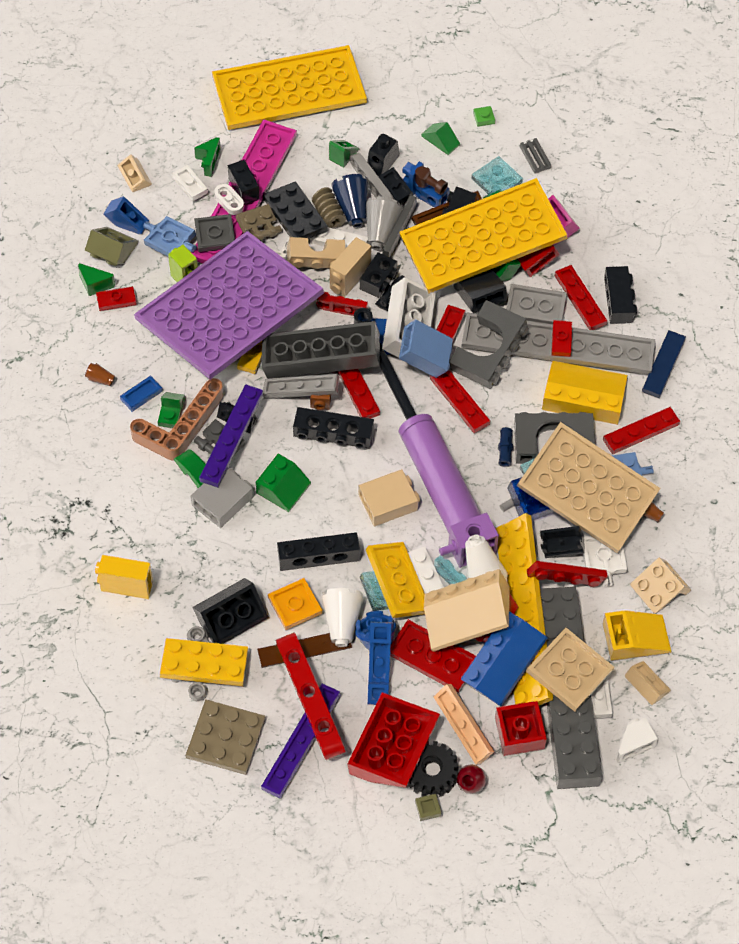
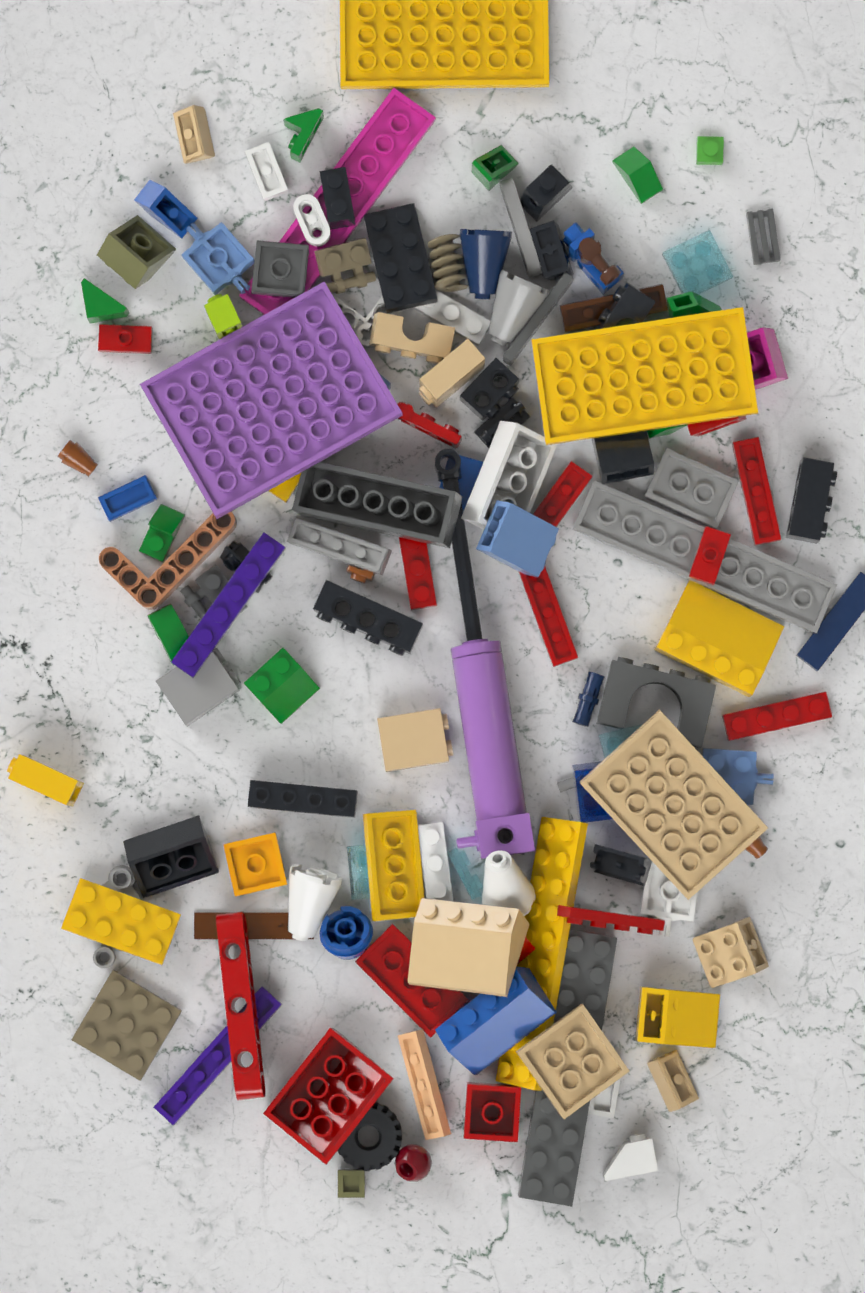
camera: 15 degrees right, 25 degrees up
(379, 660) = (337, 985): blue slope -> none
(487, 369) = (642, 531): dark grey arch -> none

